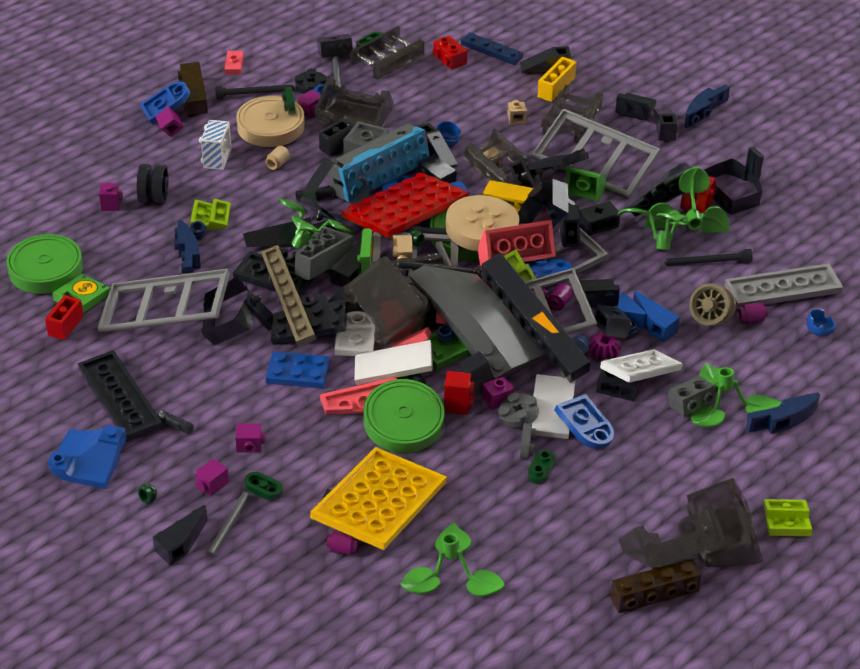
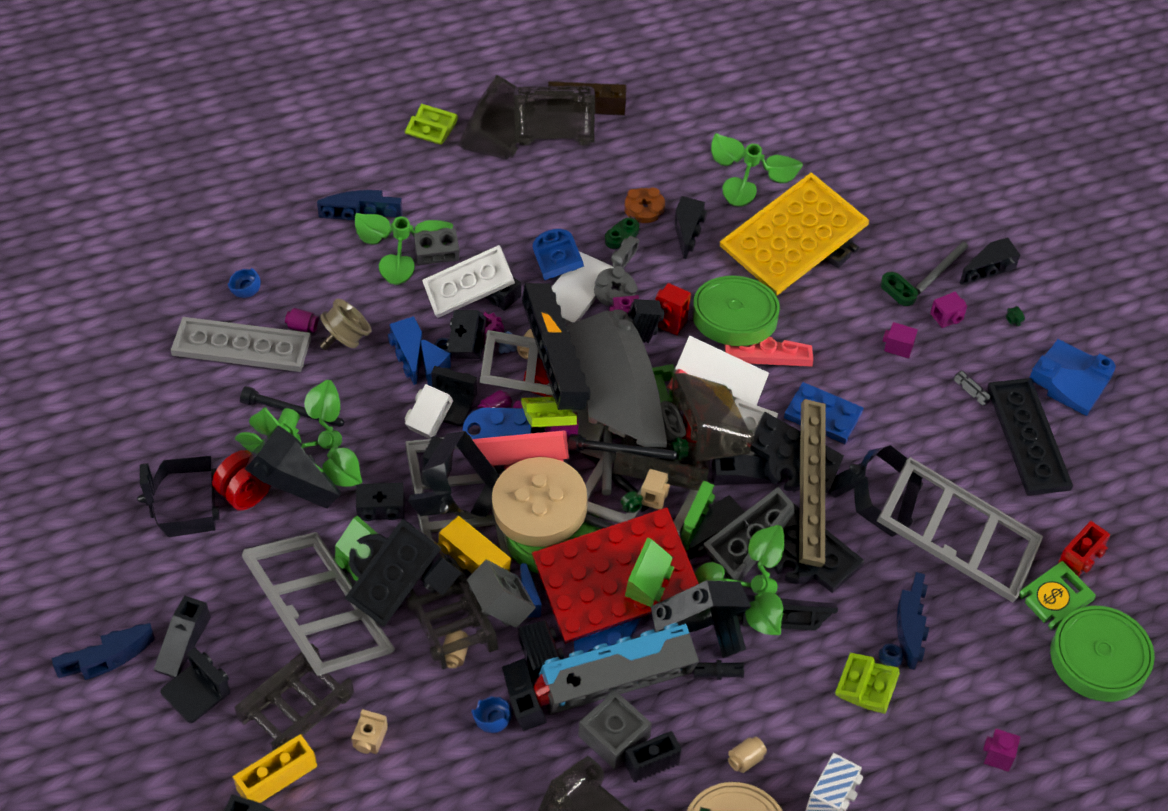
camera: 160 degrees left, 10 degrees up
(152, 183) = (939, 736): black wheel -> none
(380, 188) = (649, 573): none -> bright green slope
(475, 170) = (500, 594): none -> dark grey container
(486, 486) = (688, 218): none -> black slope
(539, 490) = (649, 196): none -> dark orange plate
(604, 270) = (428, 411): none -> white brick

